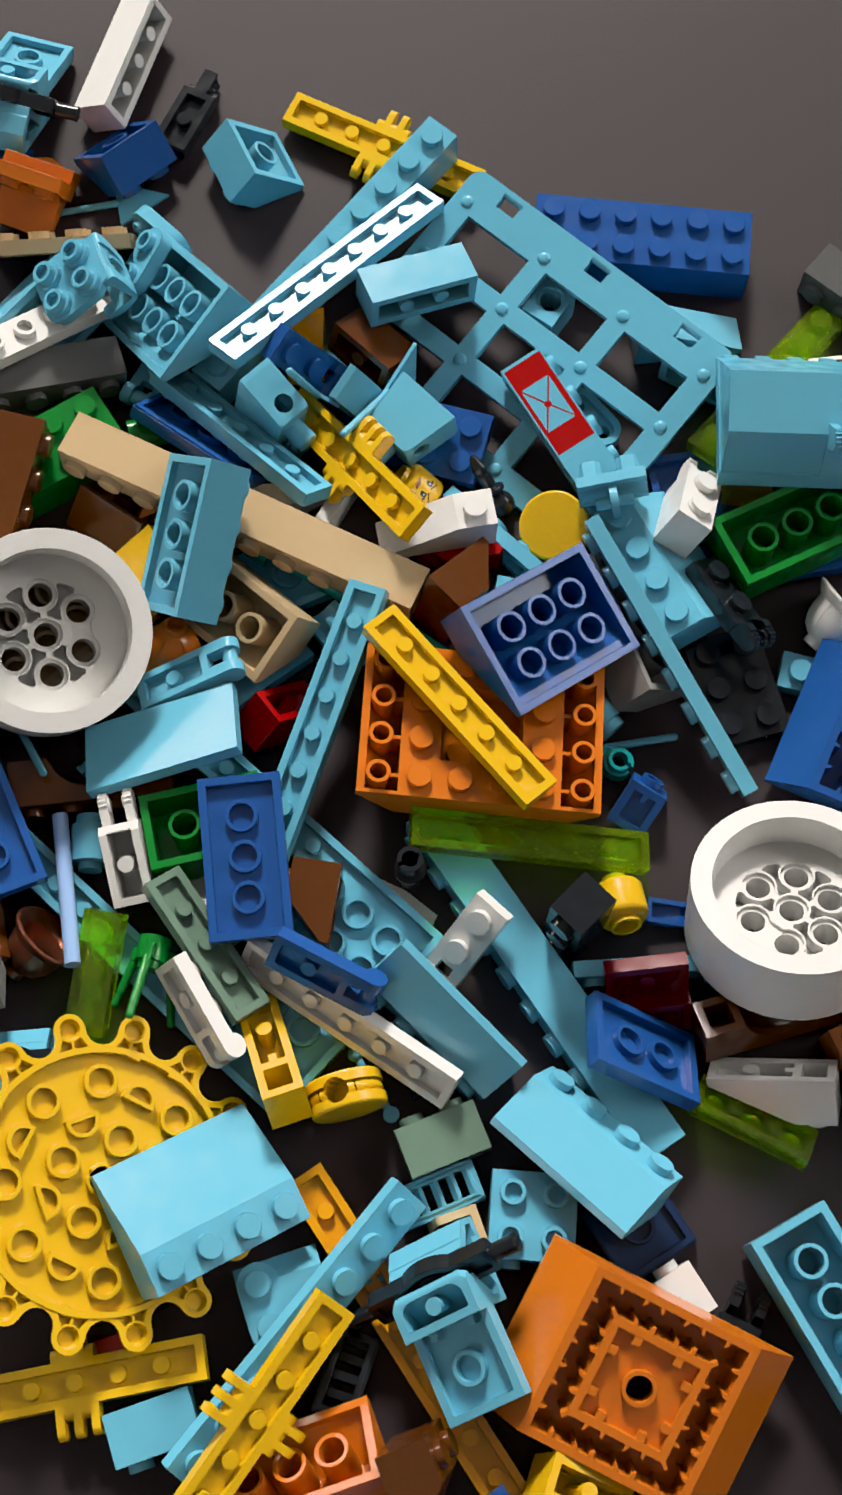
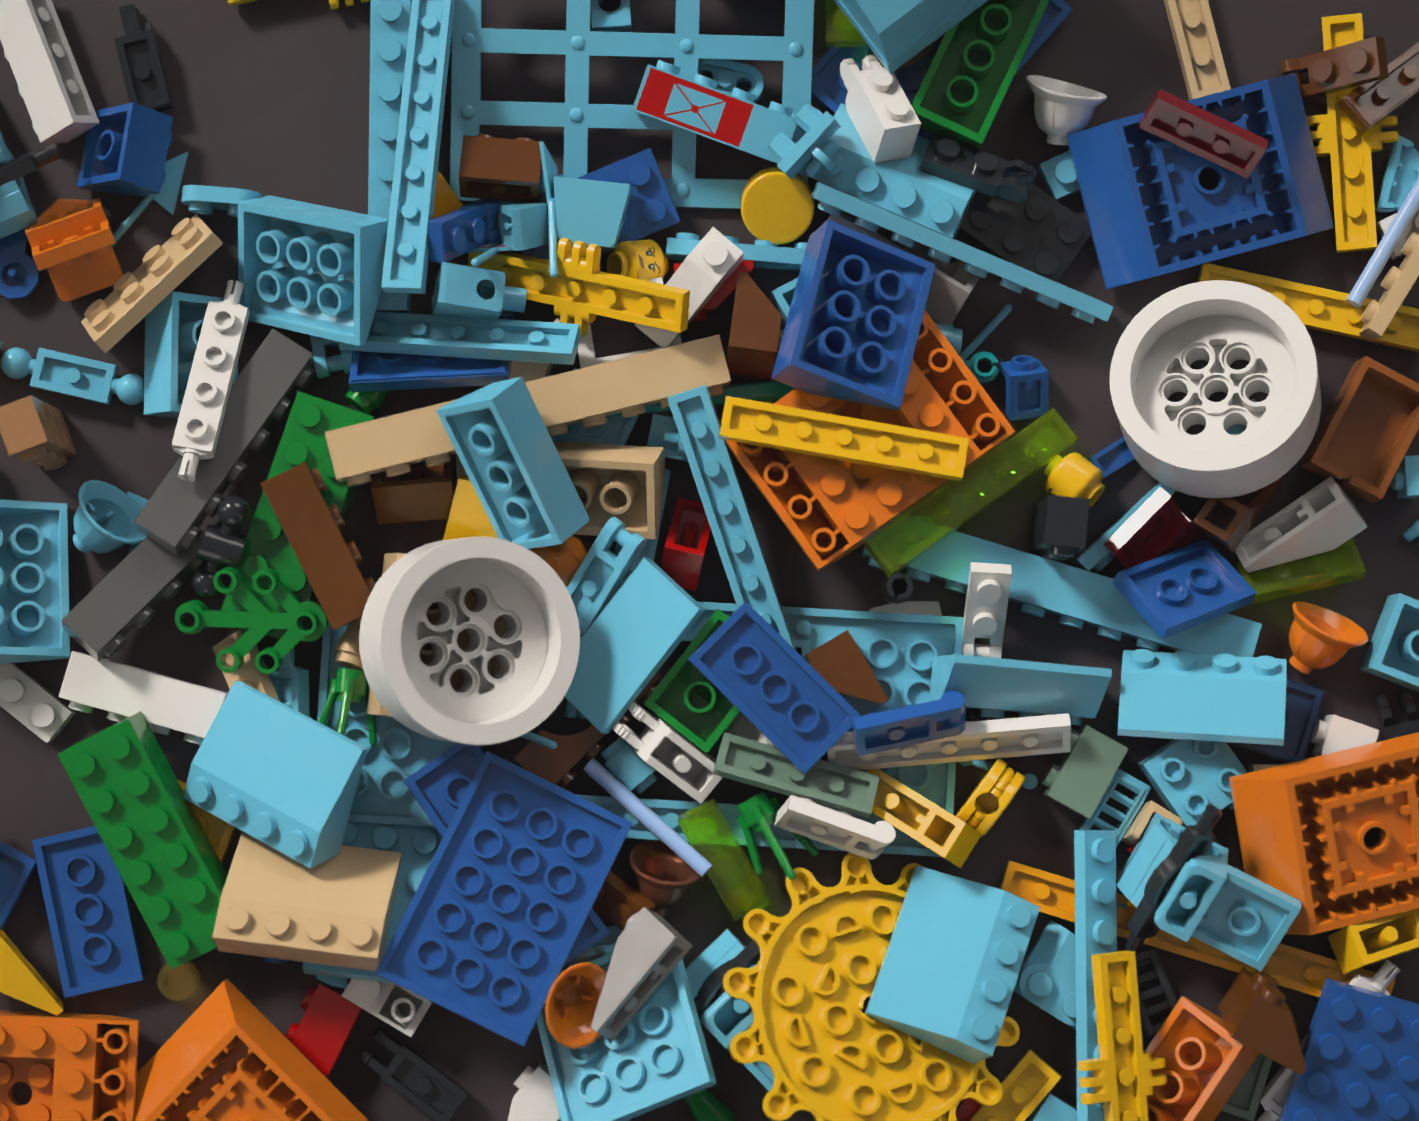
camera: 35 degrees left, 15 degrees up
(80, 277) = (216, 310): medium azure piece -> none
(147, 257) = (241, 243): medium azure plate -> none
(251, 164) = (240, 68): medium azure slope -> none
(416, 284) = (496, 85): medium azure brick -> none
(503, 500) = (699, 213): black bar -> none
(727, 1189) = (1321, 637): none -> orange hat

